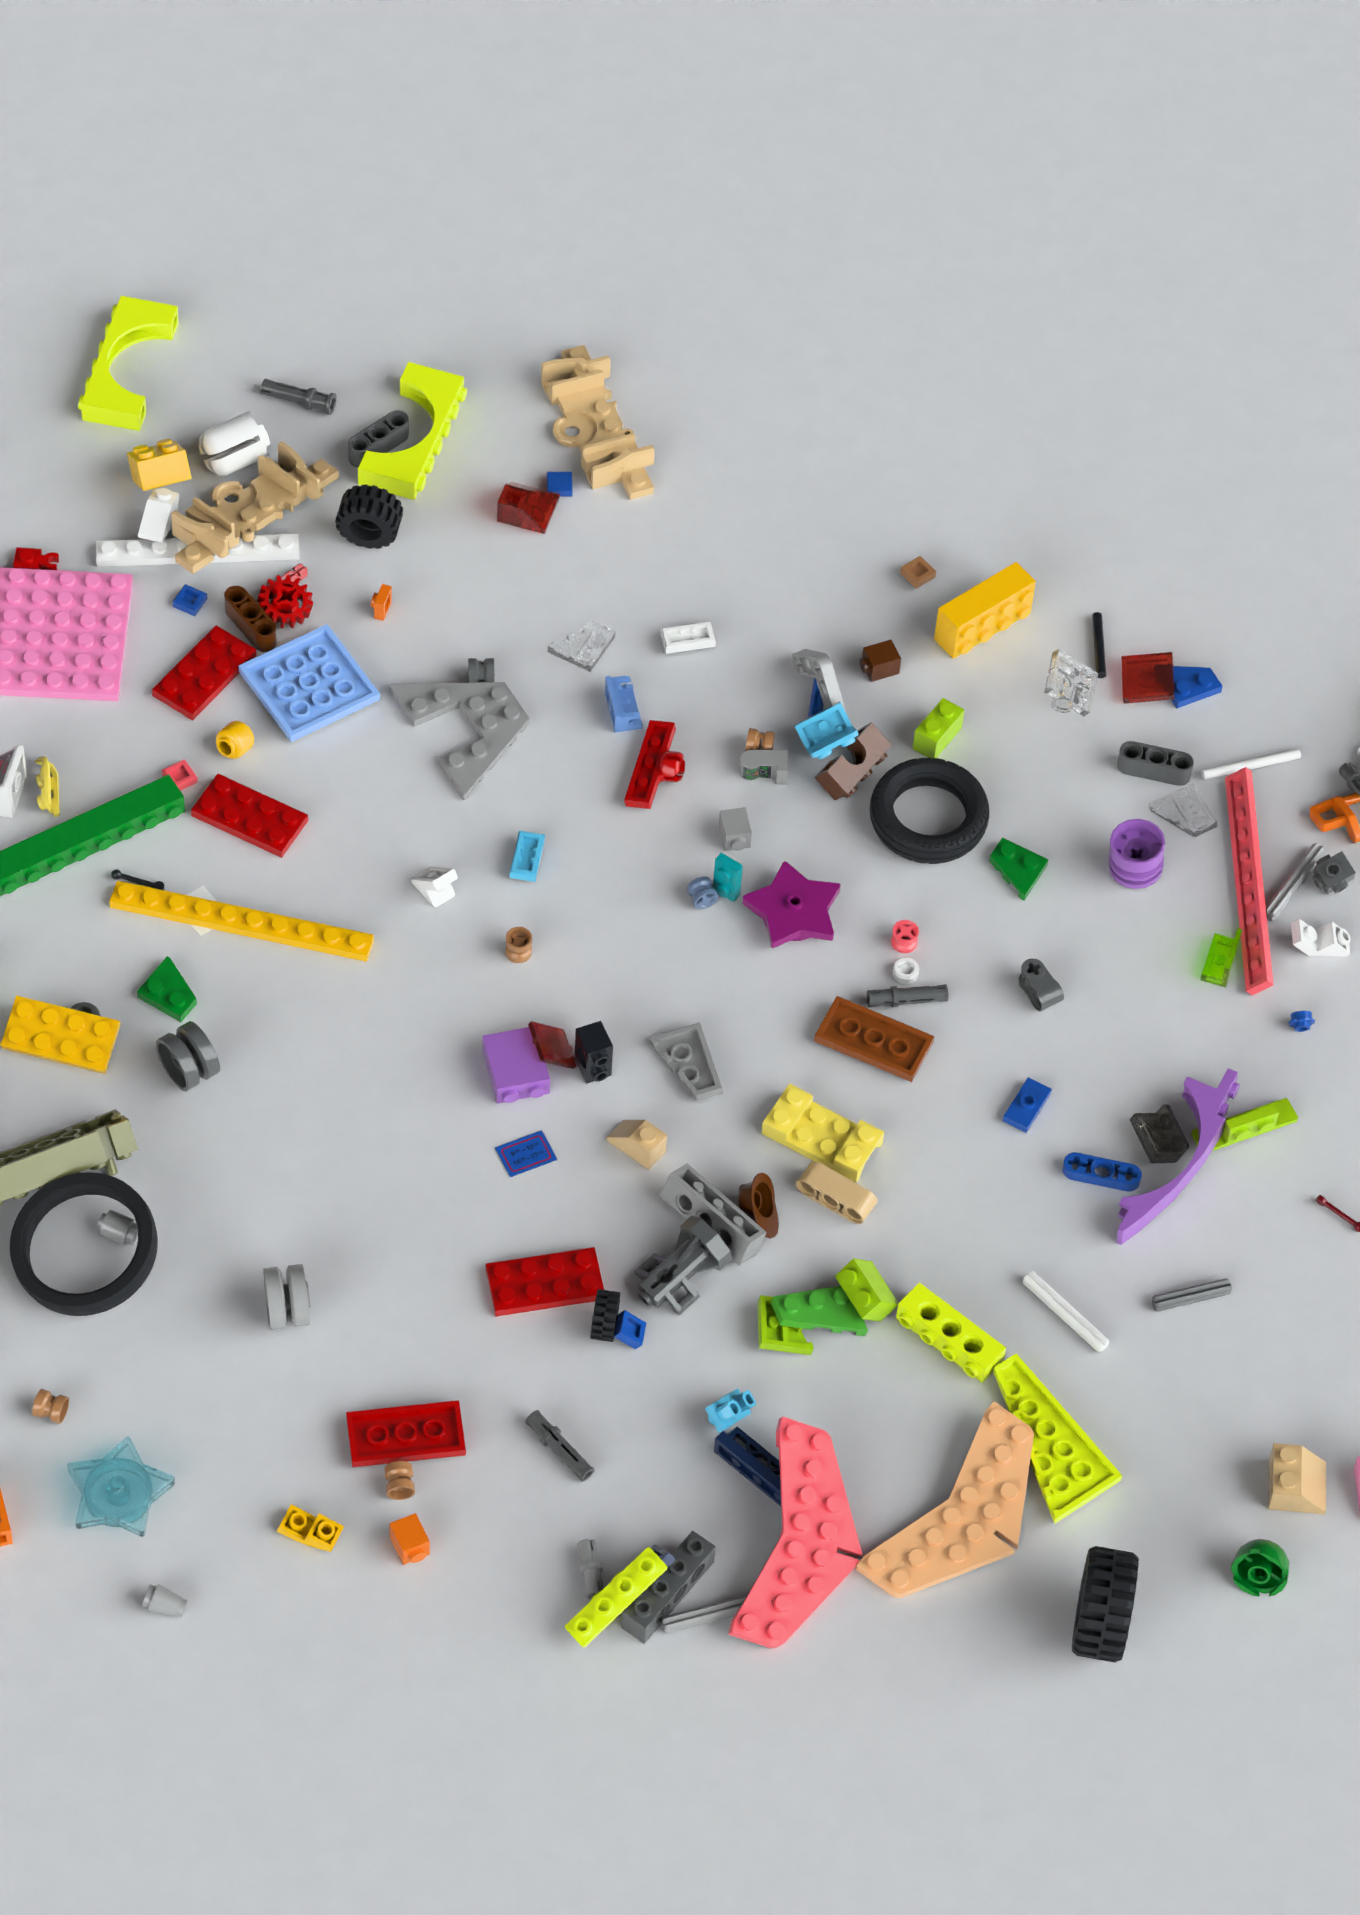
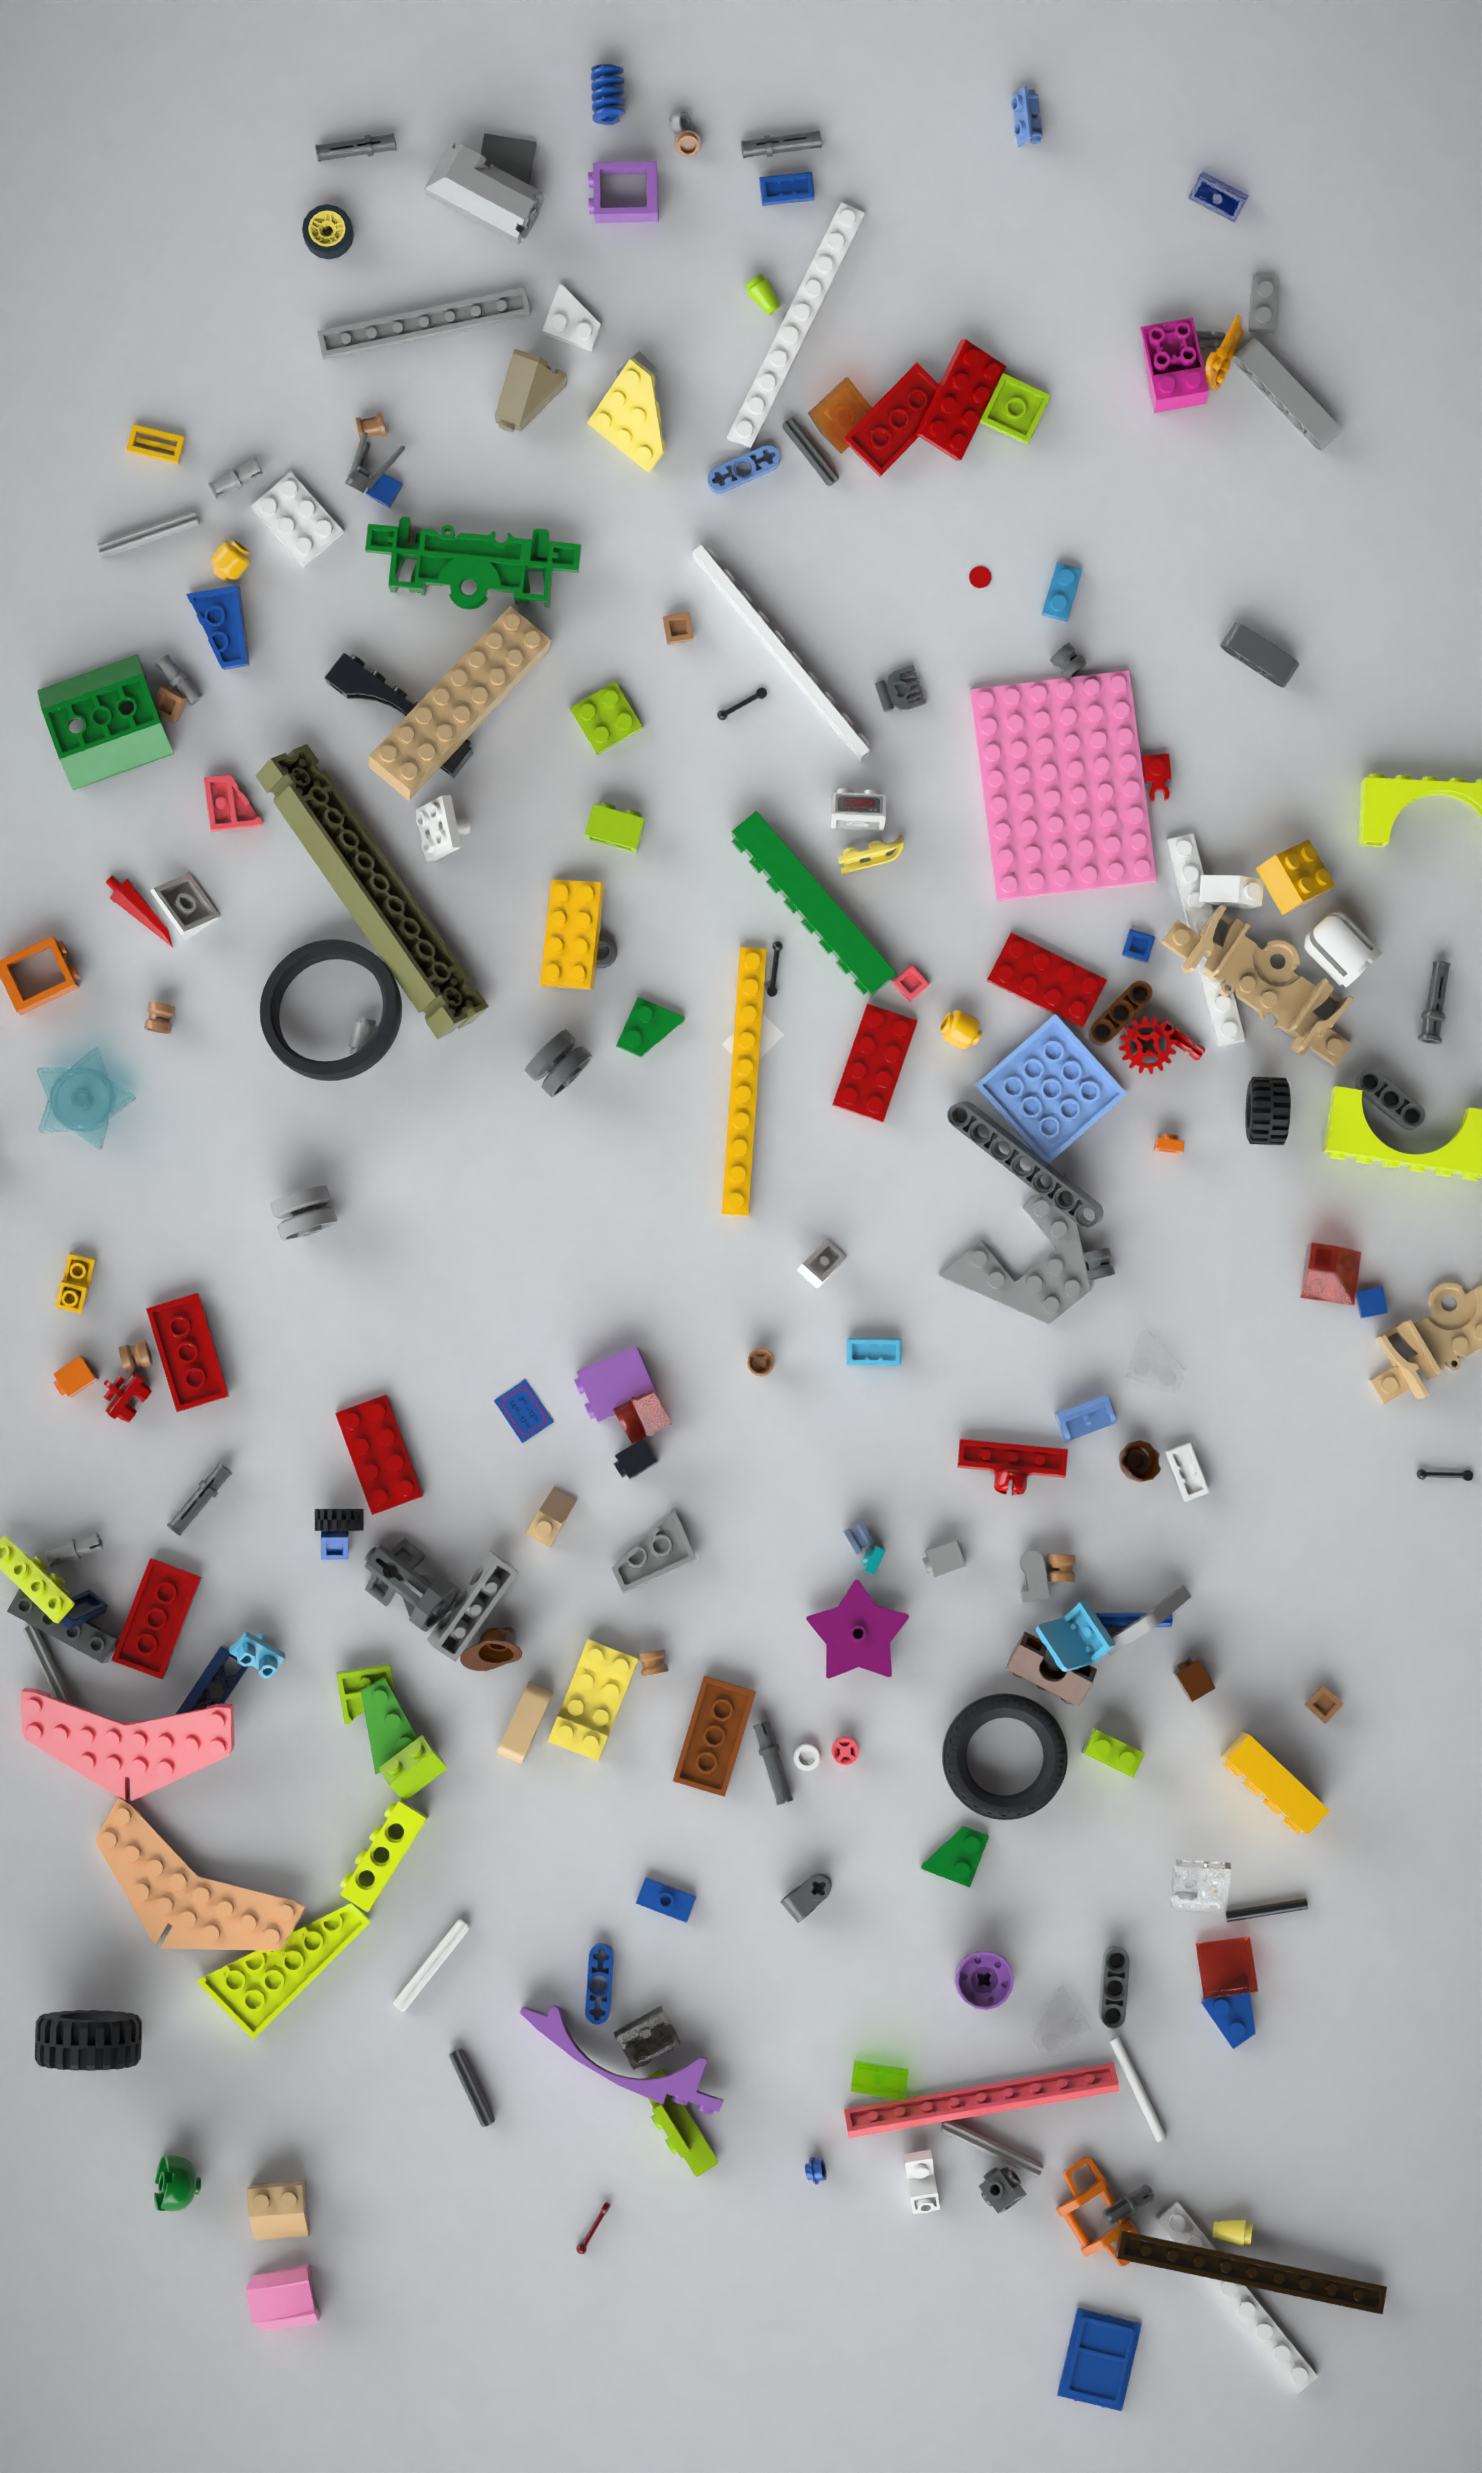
camera: 85 degrees right, 30 degrees up
(368, 715) = (1012, 1163): none -> dark grey beam
(437, 1497) = (119, 1406): none -> red hips
(672, 669) = (1139, 1461): none -> reddish brown hair
(675, 1501) = (156, 1618): none -> red plate
(729, 444) = (1467, 1475): none -> black hinge
(795, 1075) = (653, 1662): none -> medium nougat wheel

